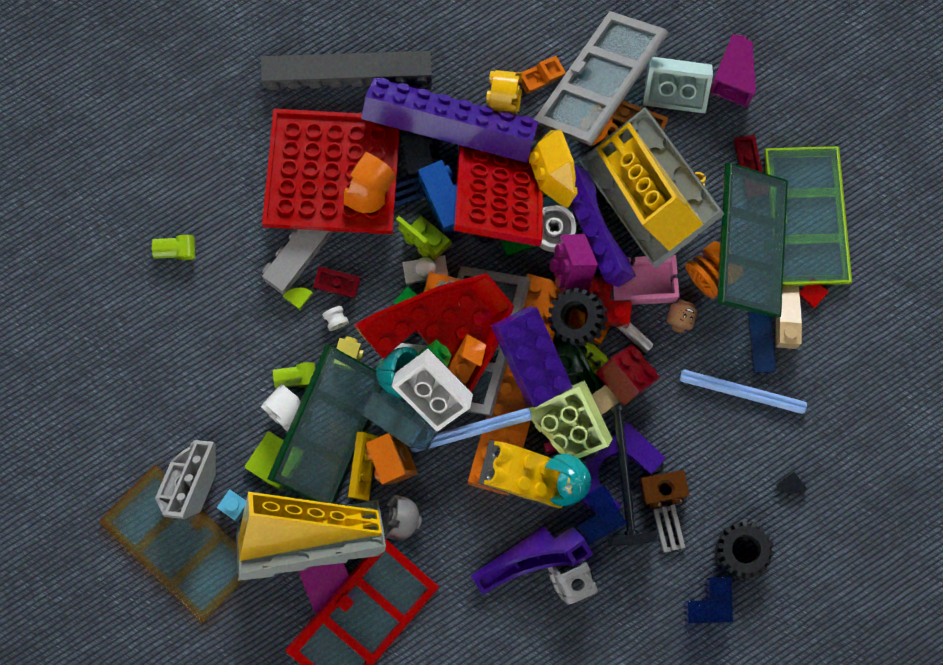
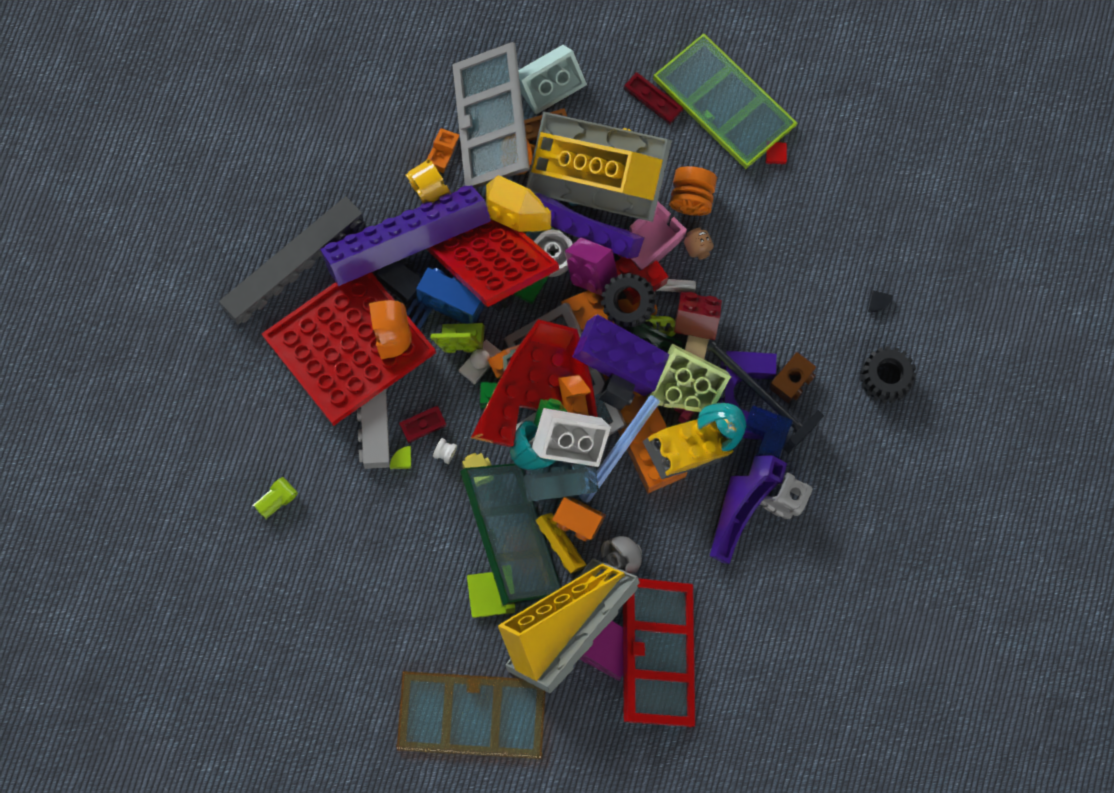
camera: 40 degrees left, 5 degrees down
(188, 481) = (439, 660): light grey wedge -> none
(232, 505) = (490, 651): medium azure brick -> none
(282, 406) = (466, 547): white brick -> none
(294, 376) = (456, 513): lime piece -> none
(504, 384) = (617, 392): none -> black brick
(672, 508) = (825, 398): light grey tile -> none
(716, 607) = (903, 431): clear blue brick -> none
(736, 72) = (586, 35): magenta slope -> none
(743, 391) = (788, 263): light blue axle -> none
(752, 241) = (705, 146): clear light blue door -> none
(761, 343) = (769, 215): dark blue tile -> none
(789, 326) = (775, 184): tan slope -> none

